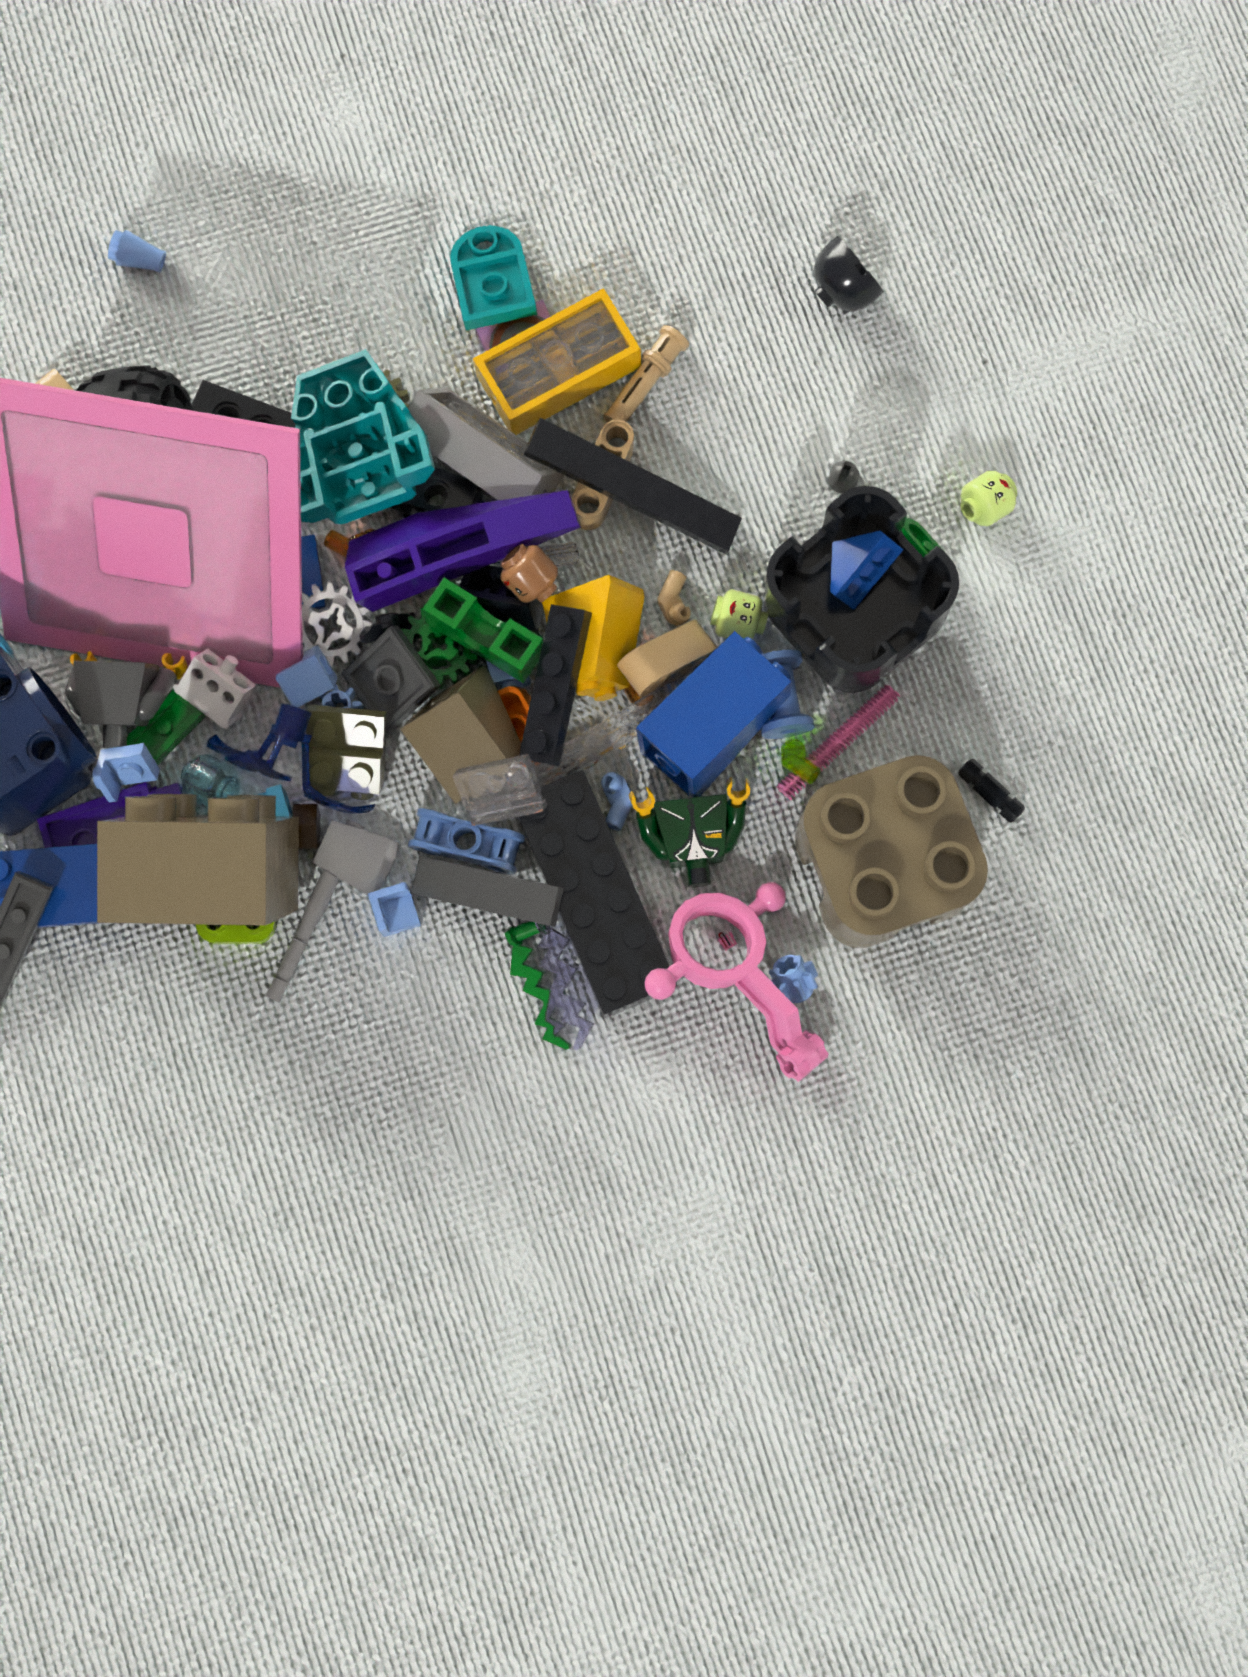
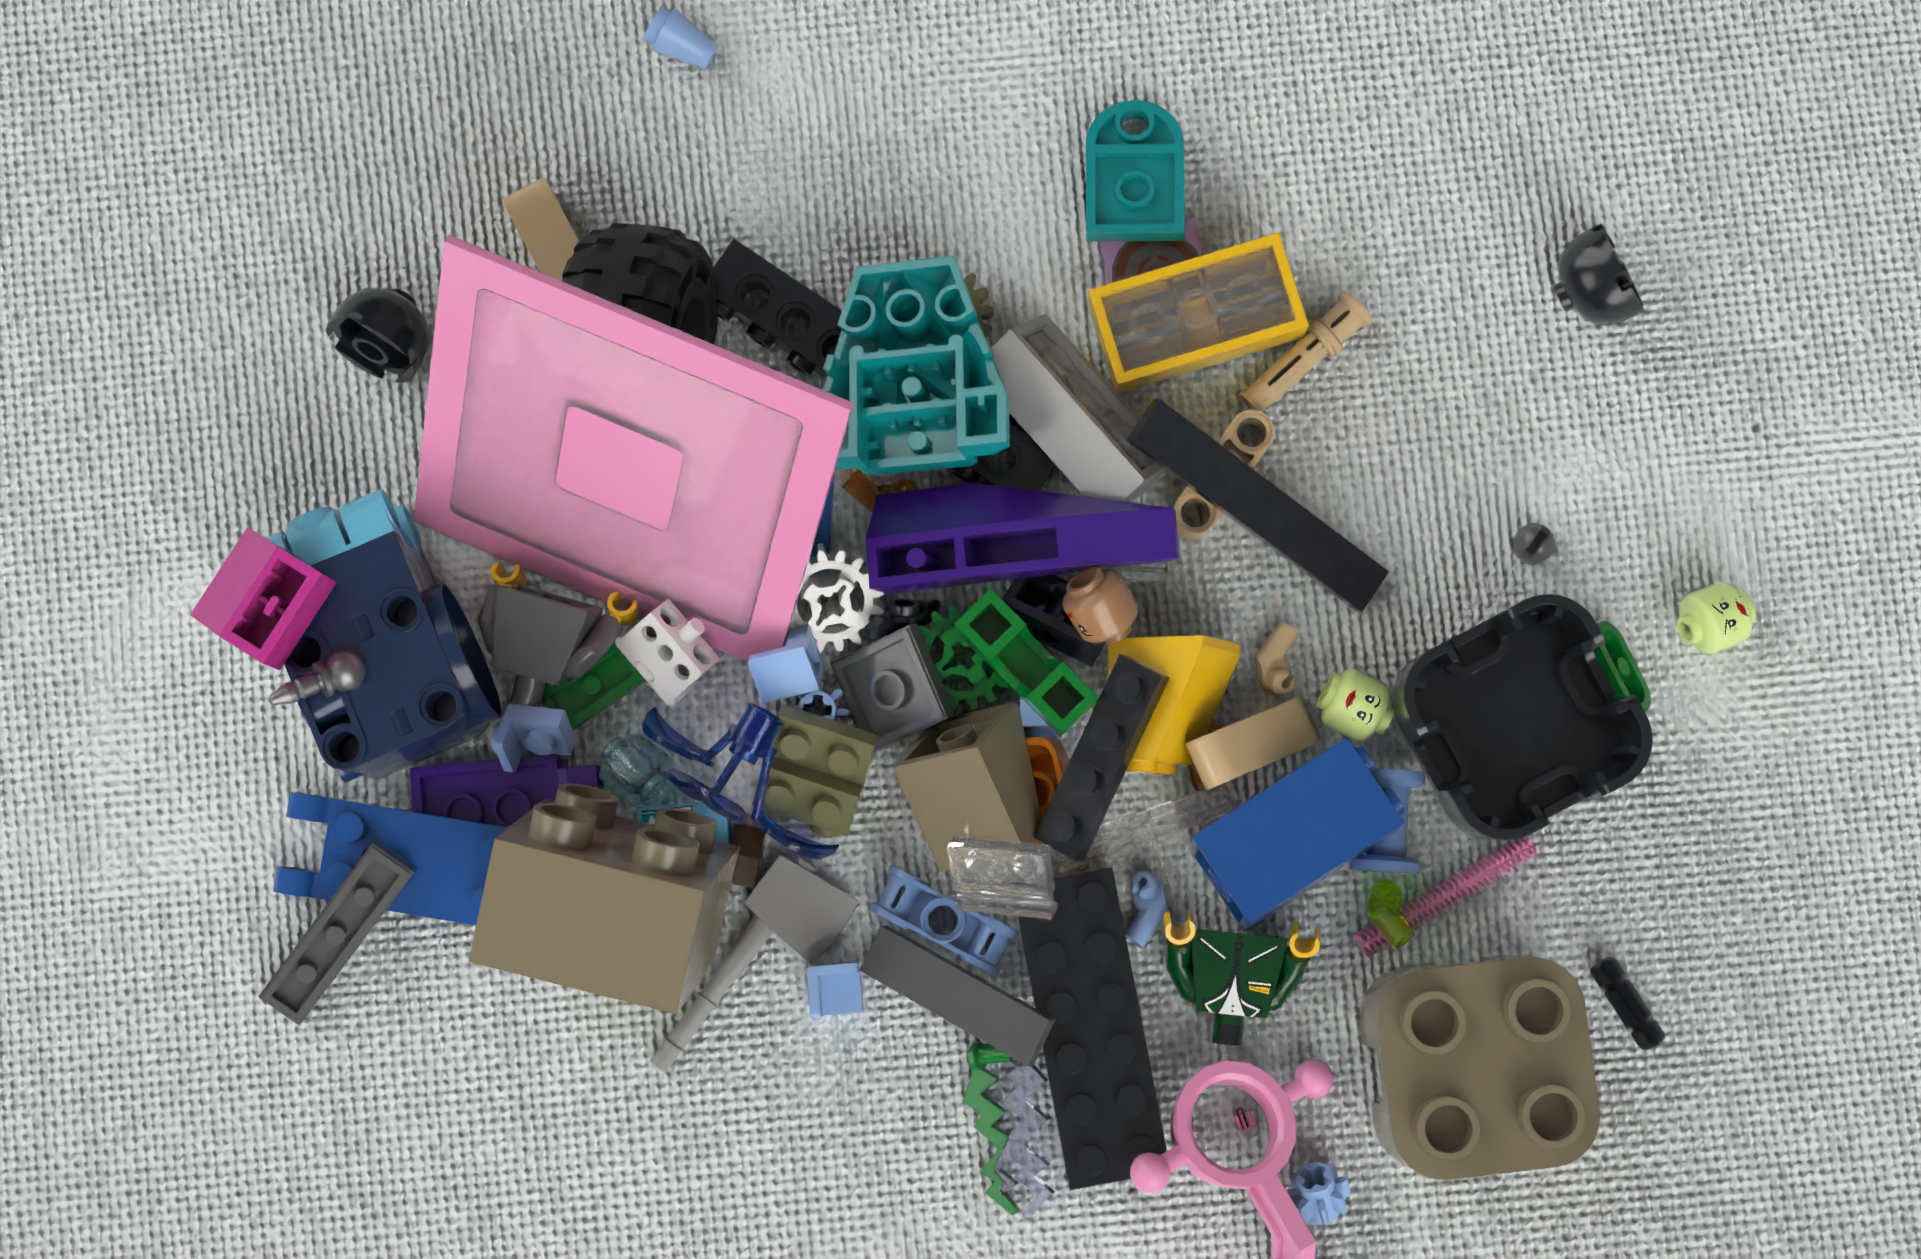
camera: 15 degrees right, 5 degrees up
(859, 565) = (1526, 681): blue slope -> none

